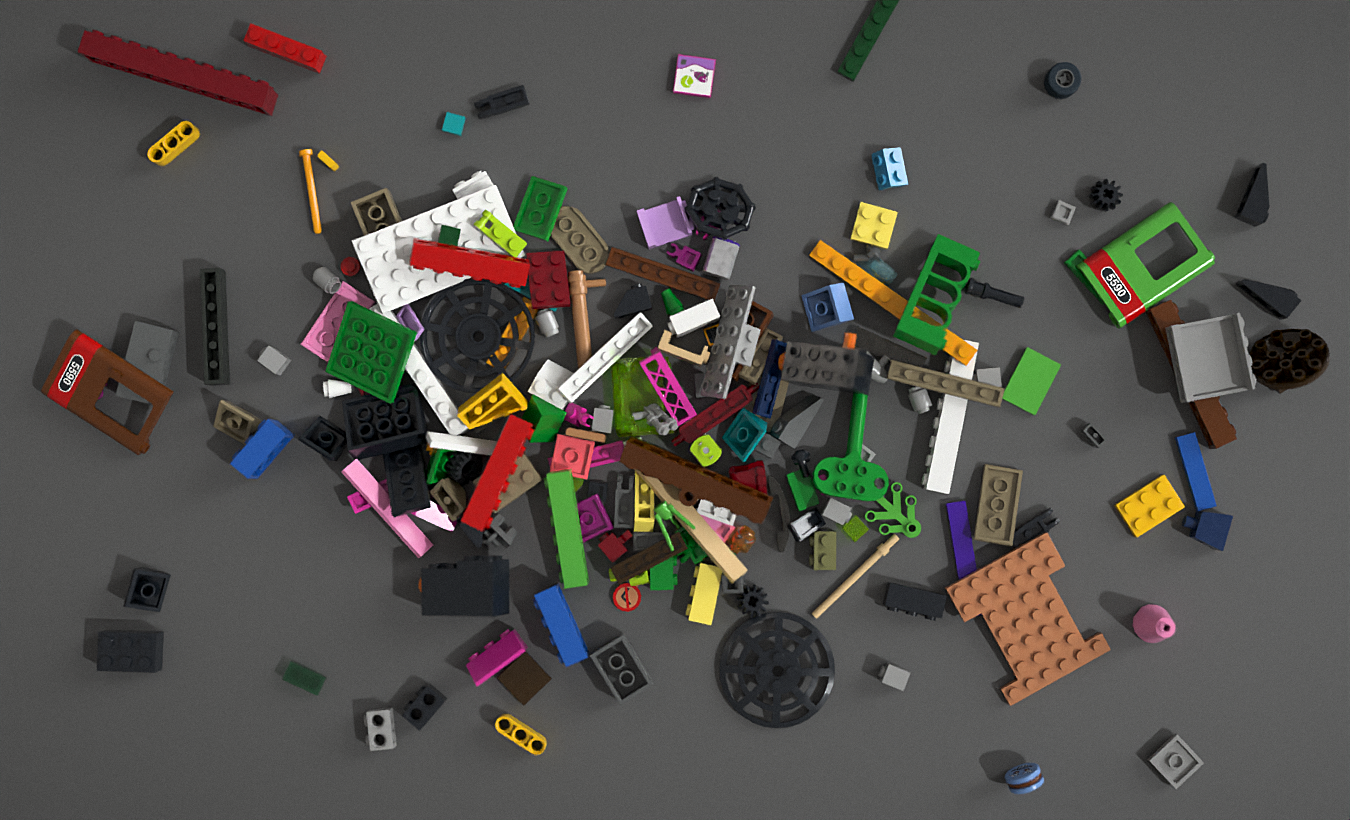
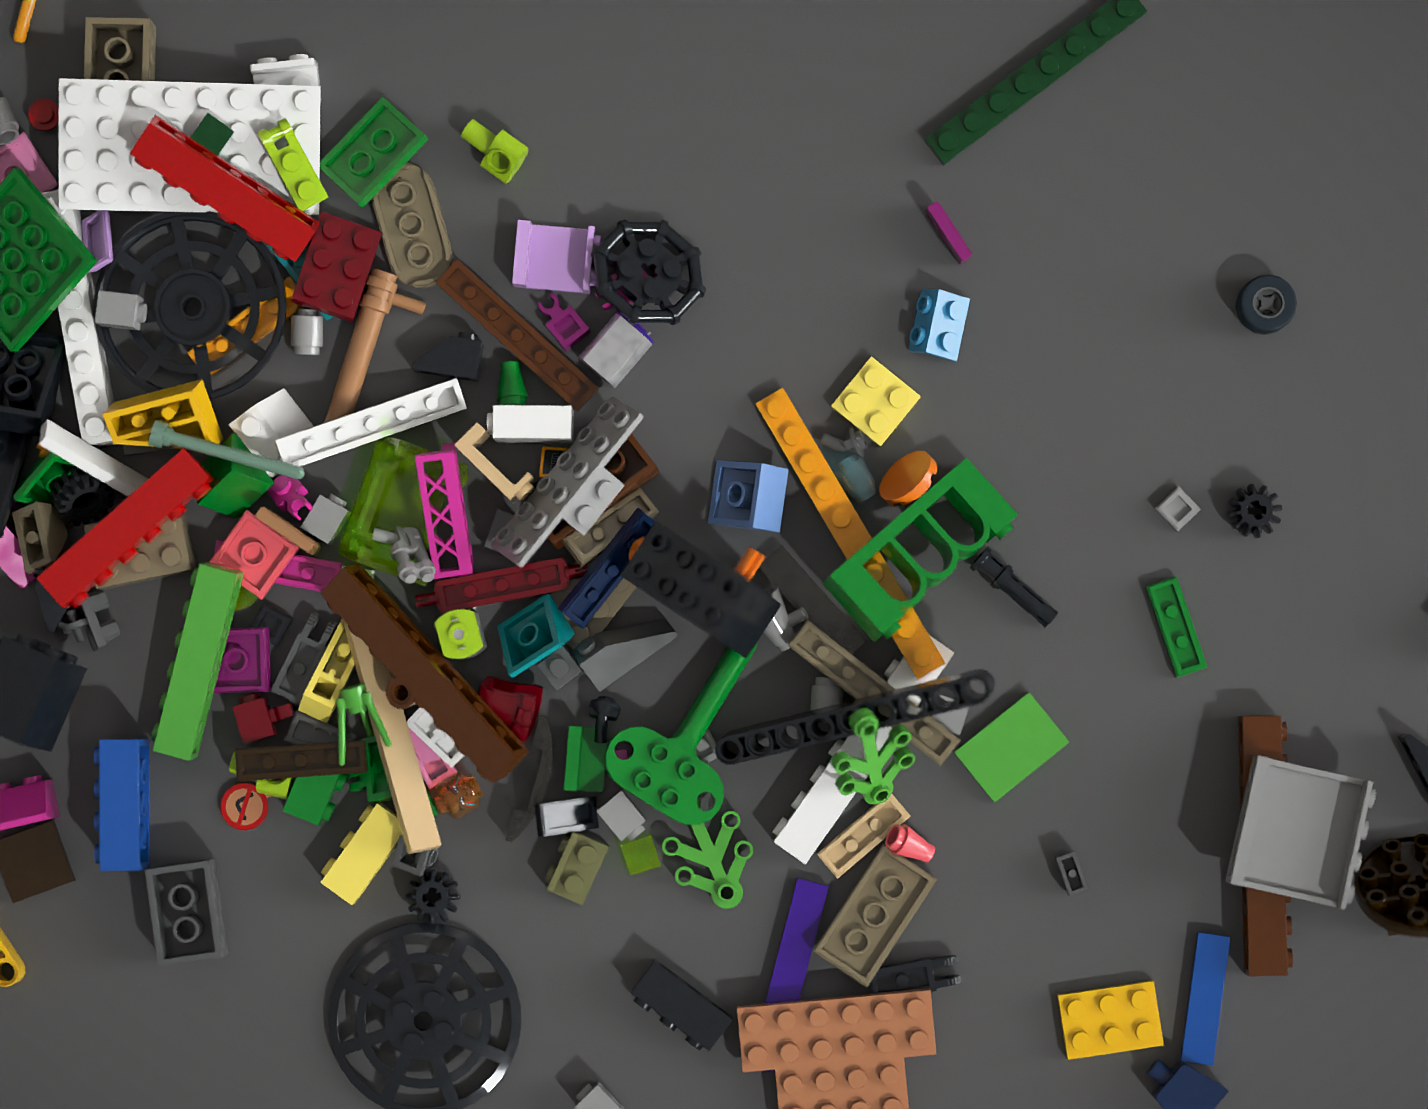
camera: 30 degrees right, 0 degrees up
(441, 354) = (120, 310): none -> light grey brick
(496, 411) = (163, 435): none -> sand green piece
(605, 176) = (502, 151): none -> lime piece
(694, 76) = (701, 50): tile -> none
(873, 116) = (948, 232): none -> magenta tile
(881, 551) = (668, 906): tan bar -> none
(911, 259) = (908, 478): none -> orange tile
(947, 393) = (839, 723): none -> black beam
(969, 432) = (877, 786): none -> bright green plant
(971, 464) = (862, 835): none -> tan tile
(999, 458) = (907, 843): none -> coral cone
(1123, 279) = (1222, 651): bright green piece -> none

